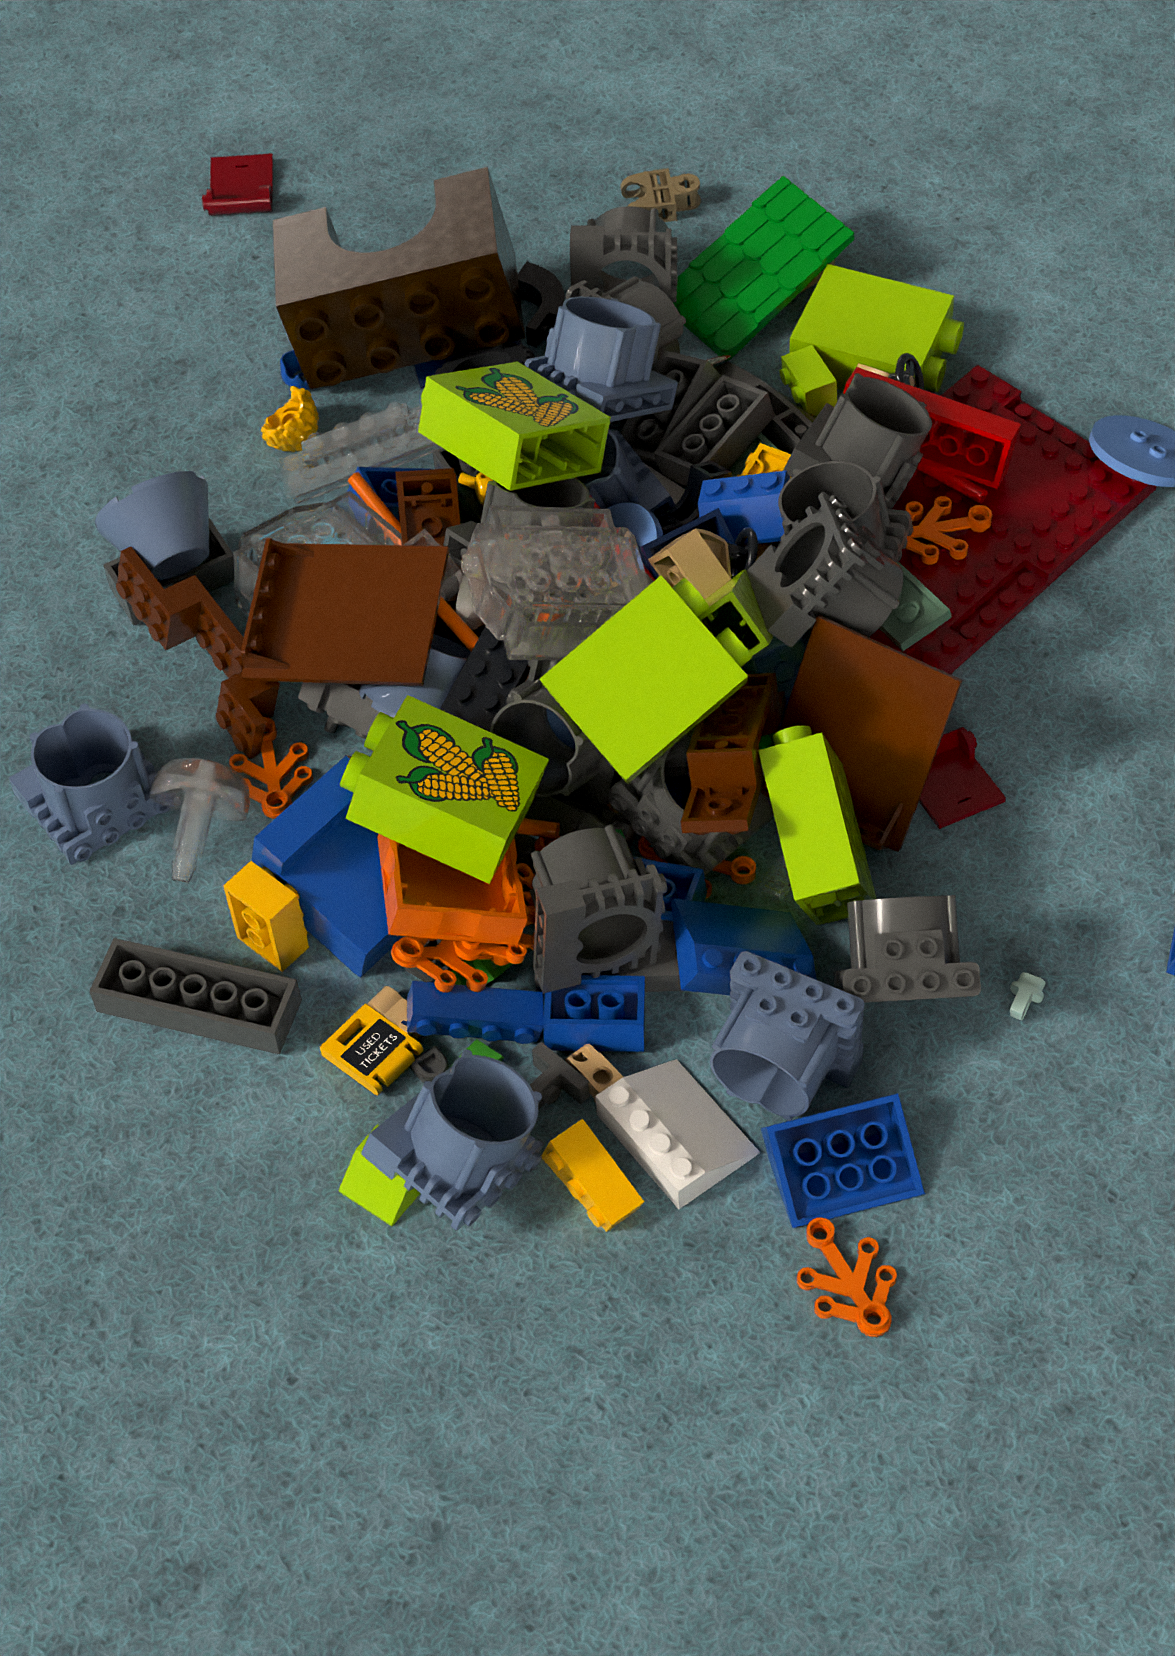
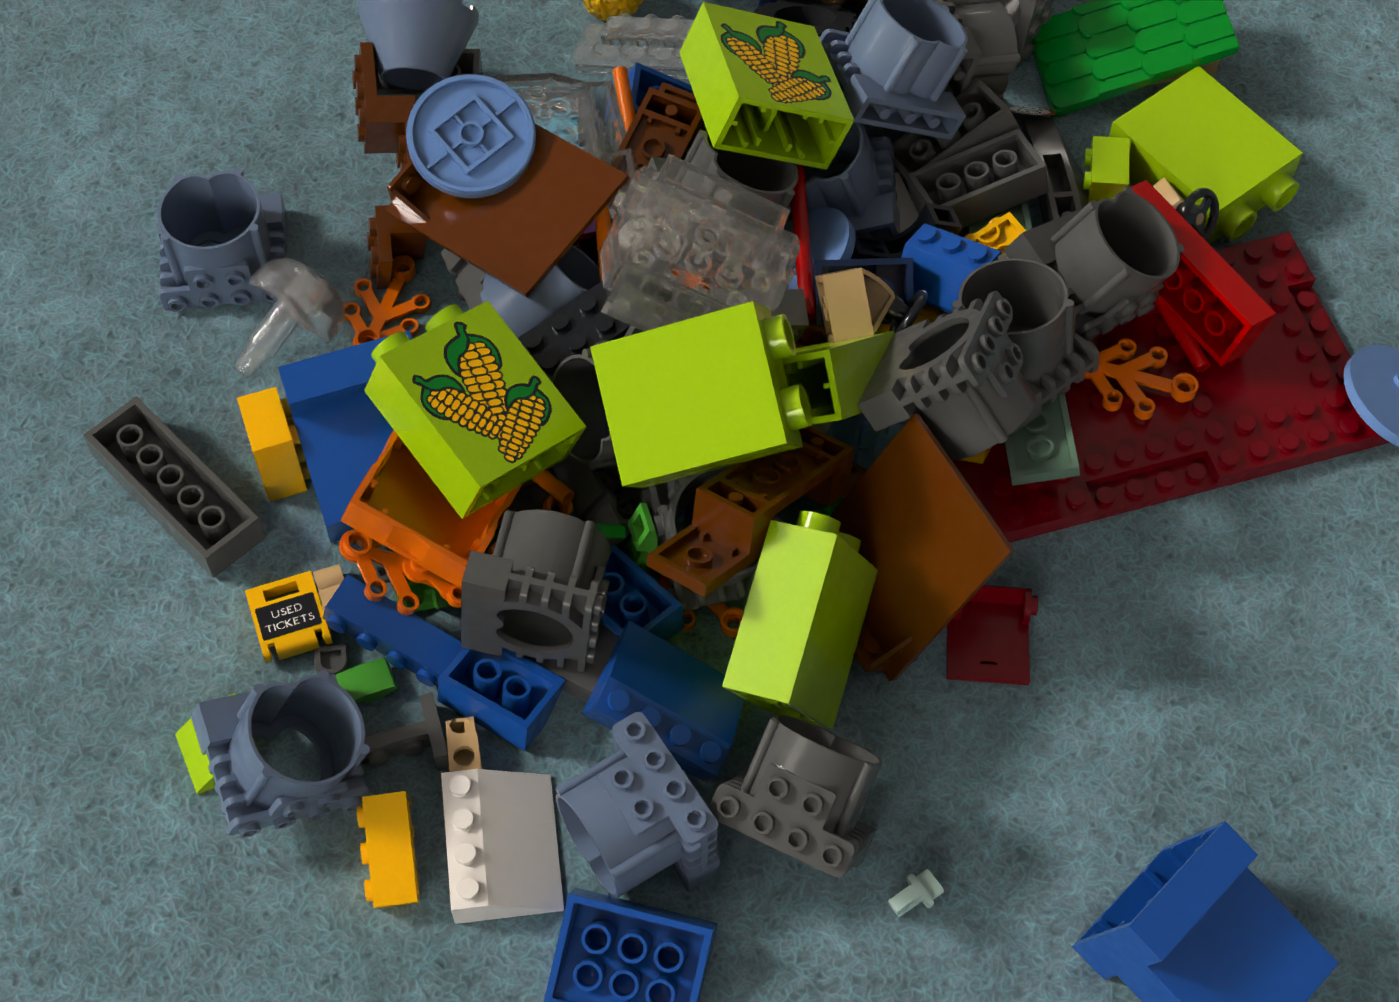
camera: 25 degrees right, 5 degrees up
(289, 576) = (471, 136): none -> medium blue plate
(637, 830) = (643, 536): none -> bright green slope

